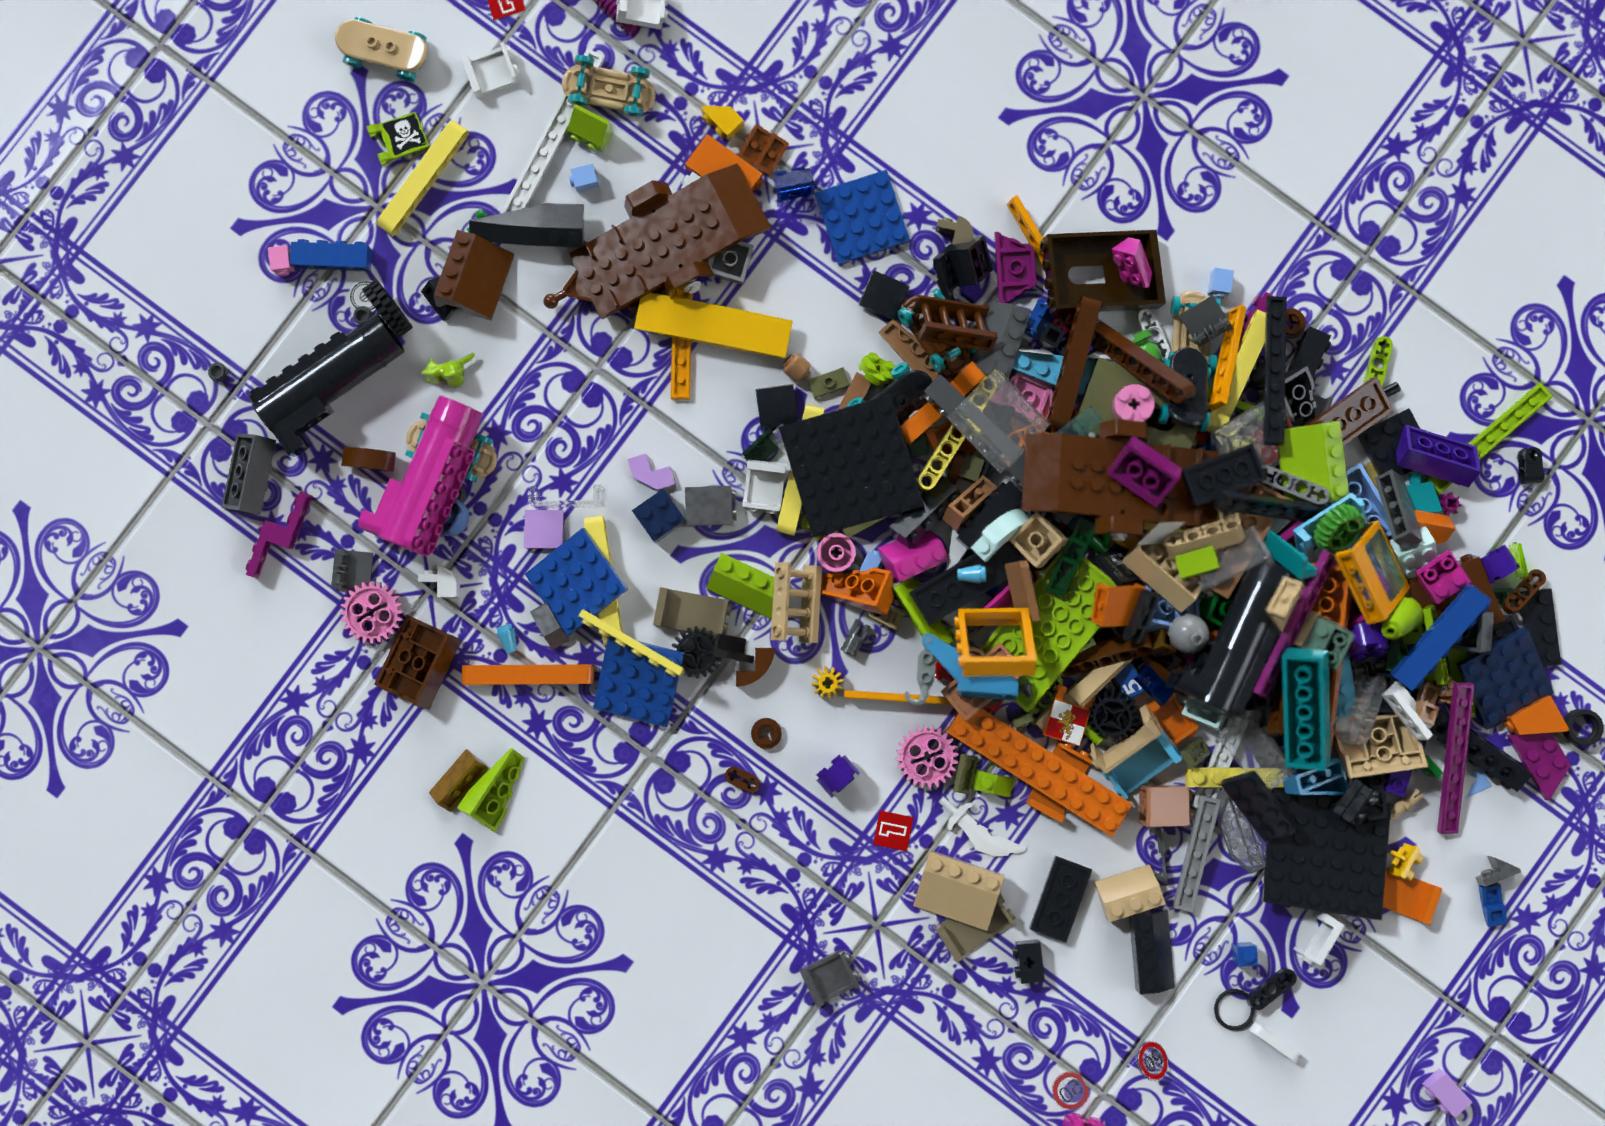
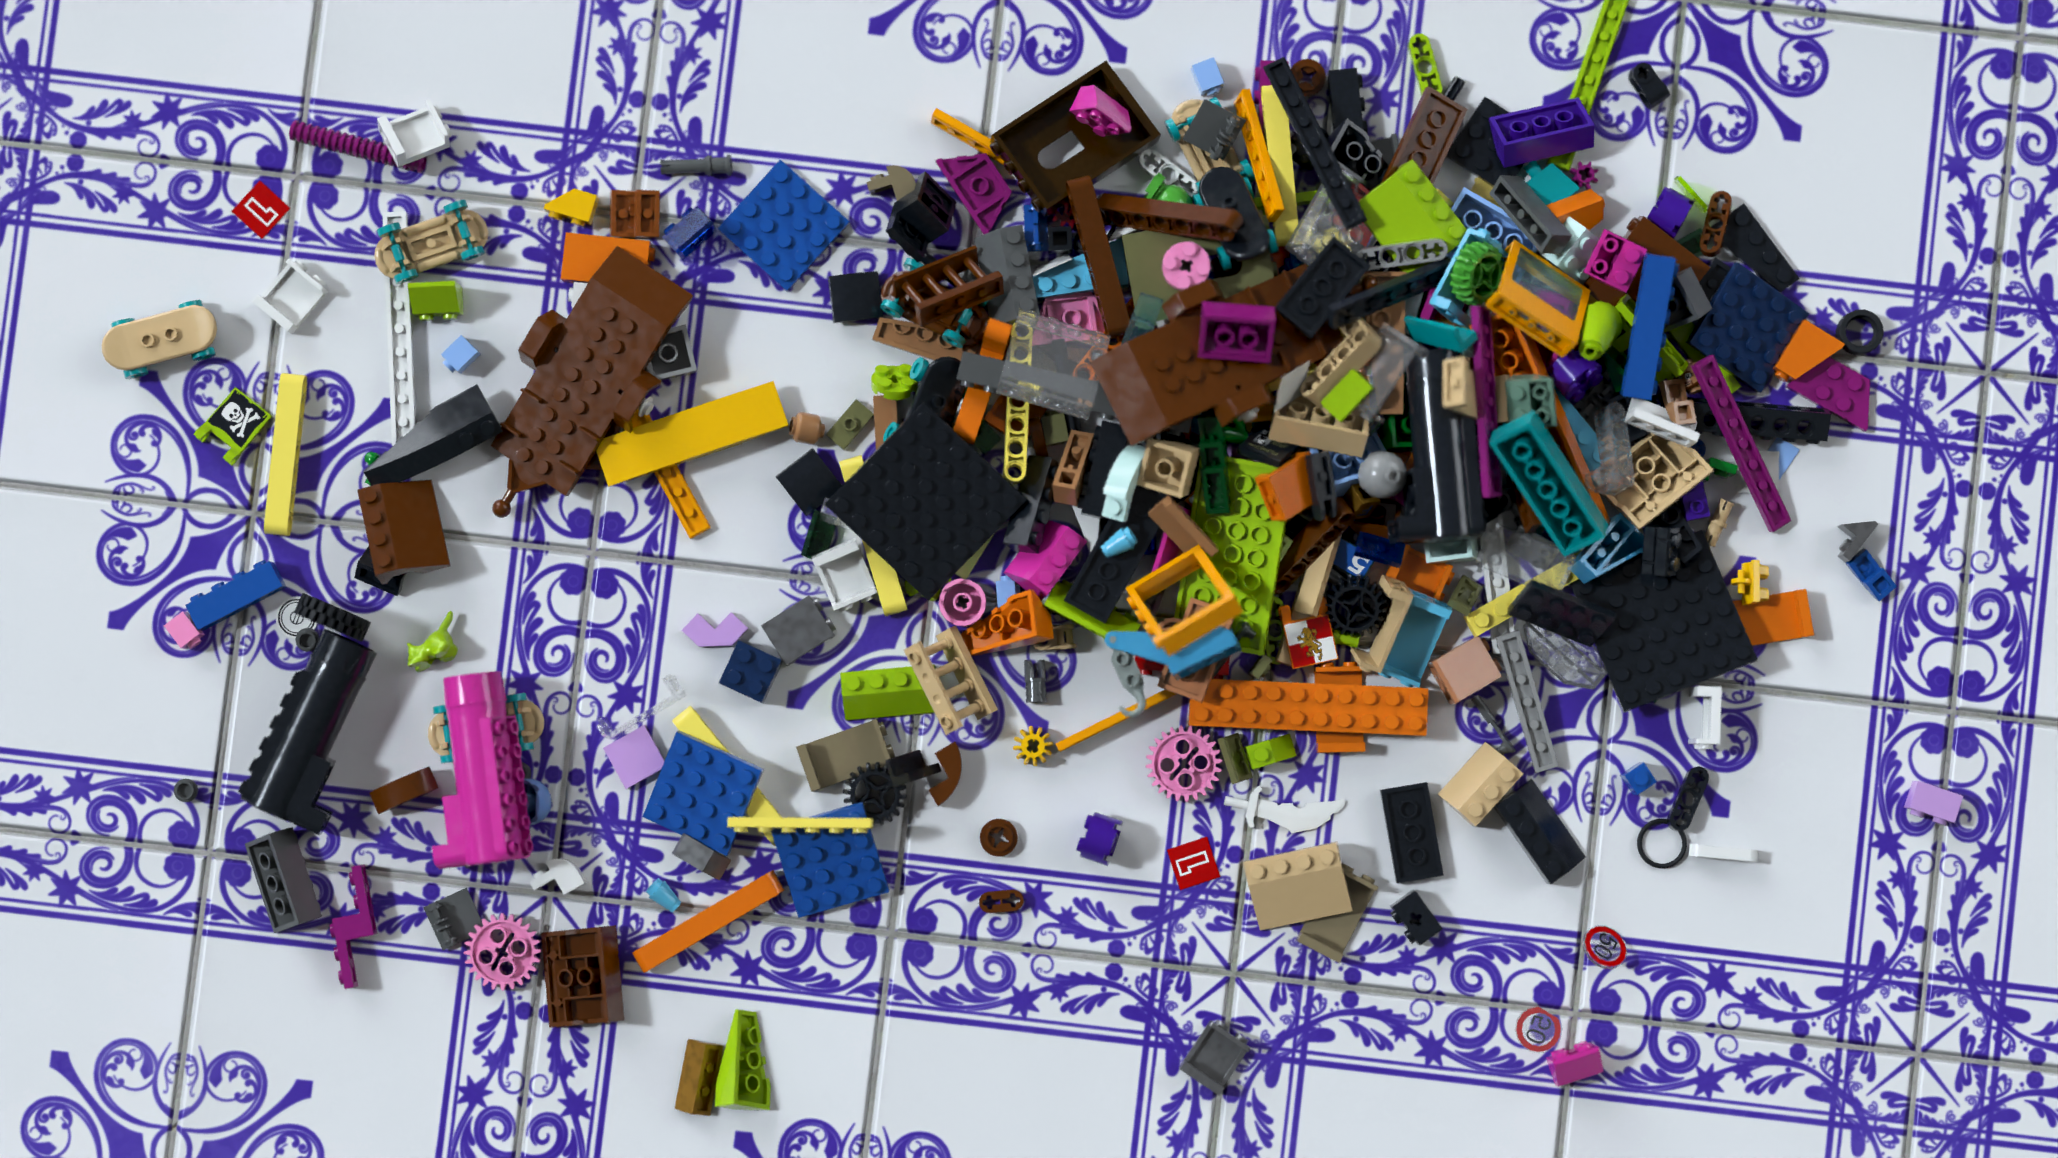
camera: 25 degrees left, 0 degrees up
(833, 145) = (707, 165): none -> dark grey pin

